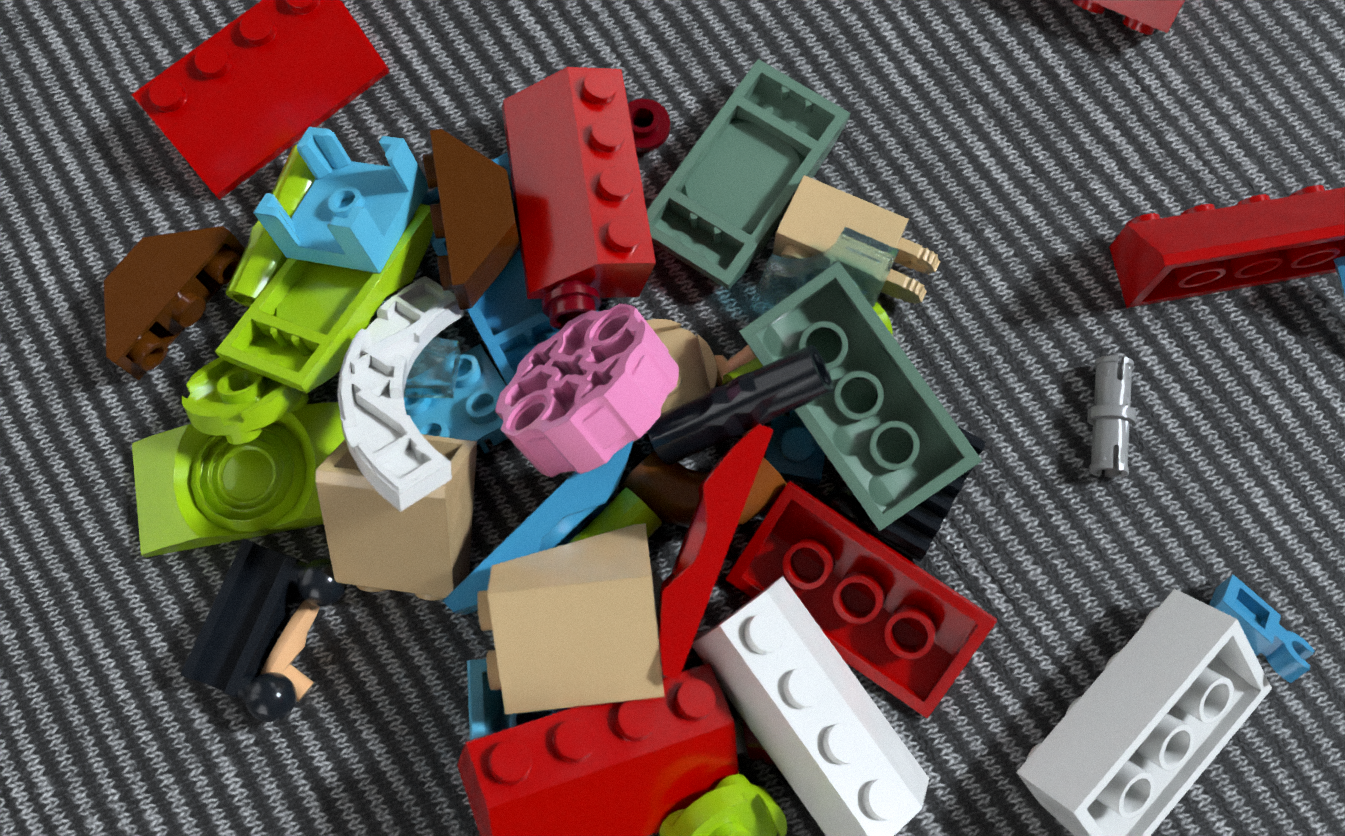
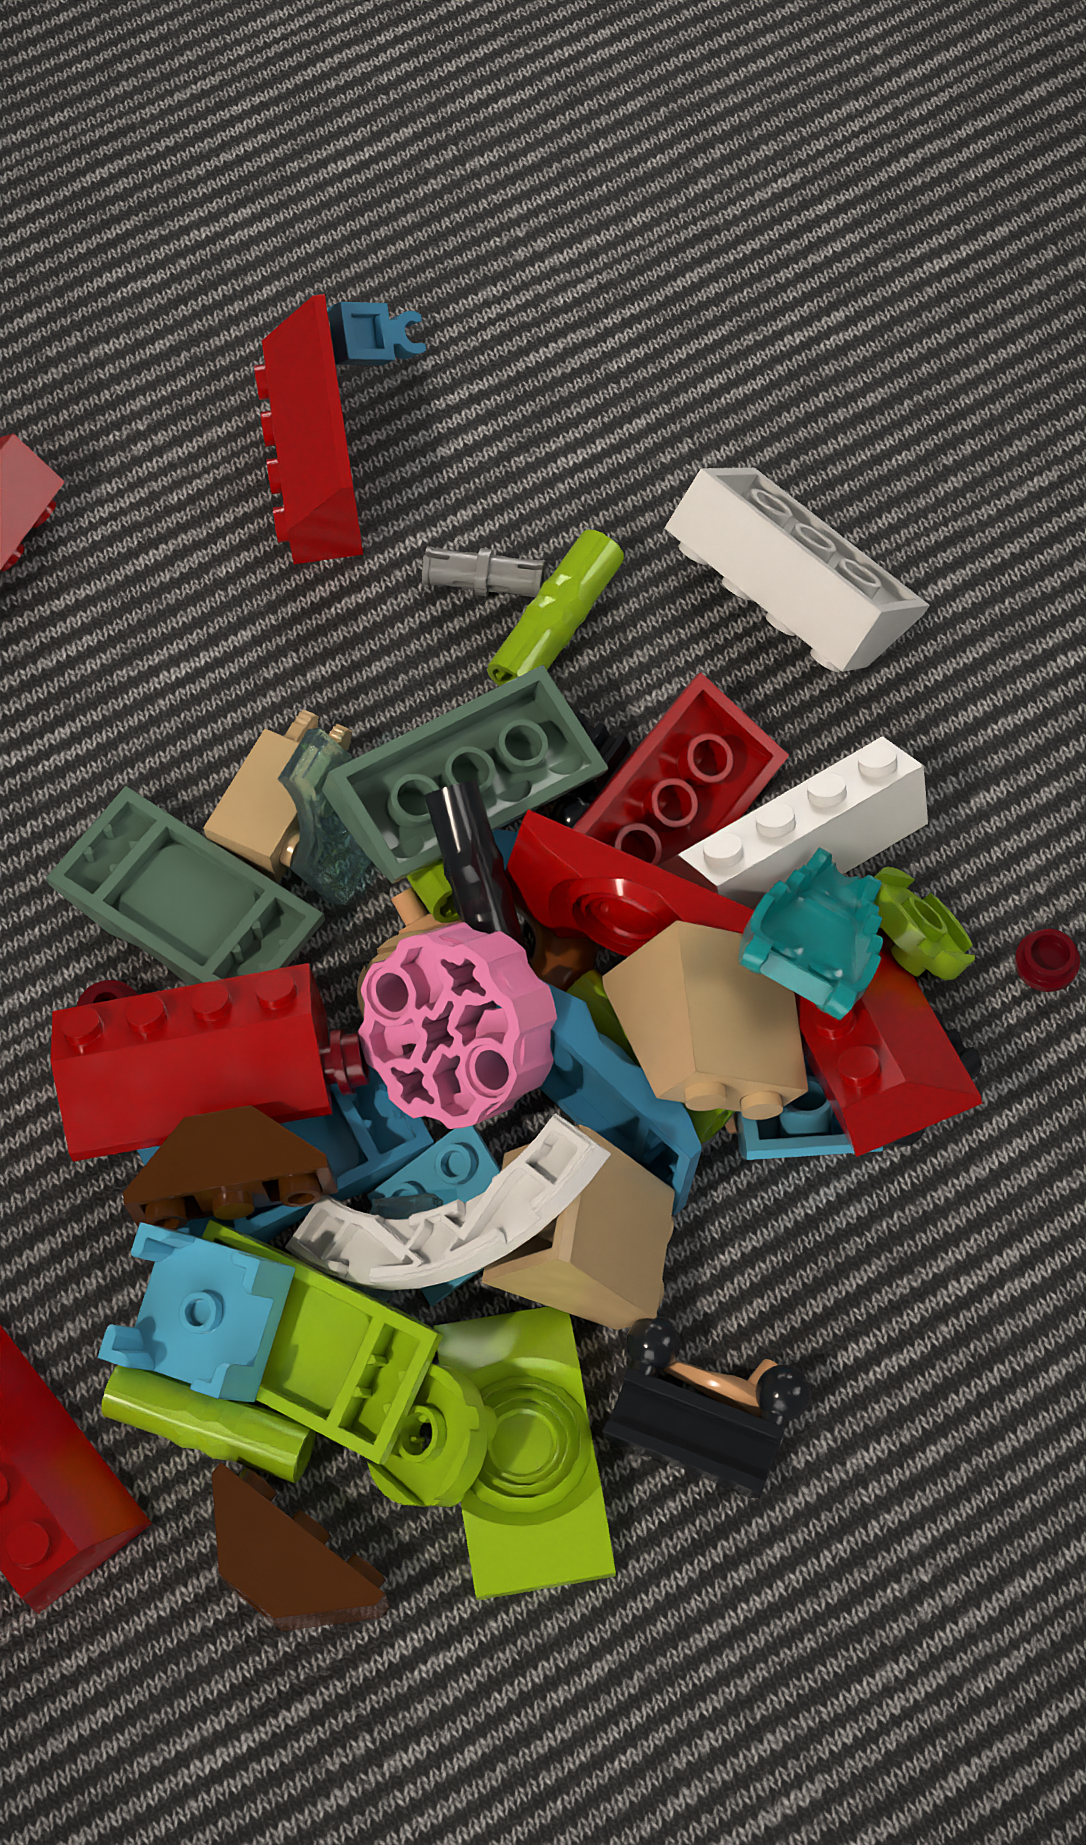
camera: 90 degrees left, 10 degrees down
(654, 723) = (817, 935): none -> teal animal
(1070, 486) = (558, 607): none -> lime axle
(1261, 626) = (717, 452): dark azure plate -> none

